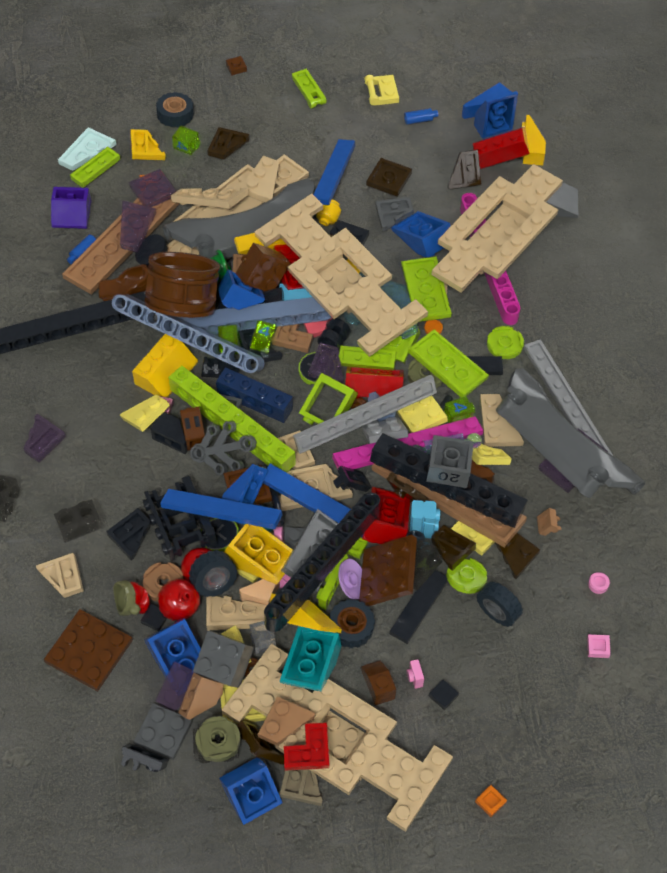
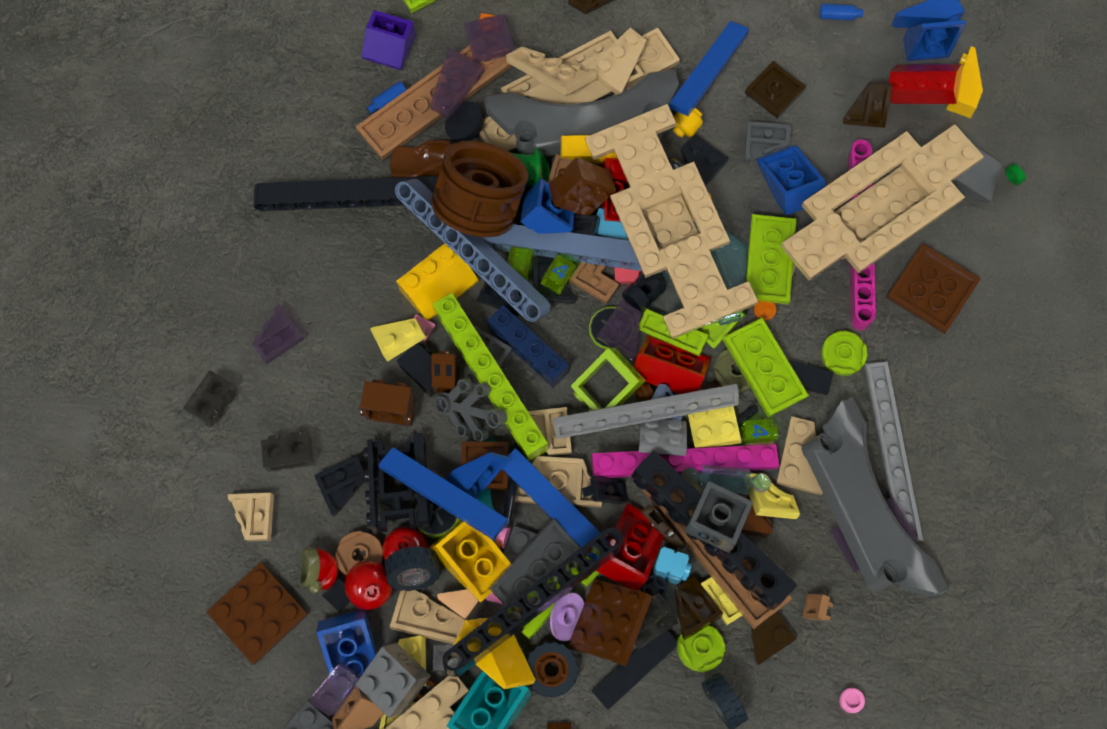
camera: 20 degrees right, 15 degrees up
(153, 461) = (388, 402): none -> reddish brown brick
(557, 282) = (933, 288): none -> reddish brown plate
(589, 192) = (1015, 174): none -> green tile

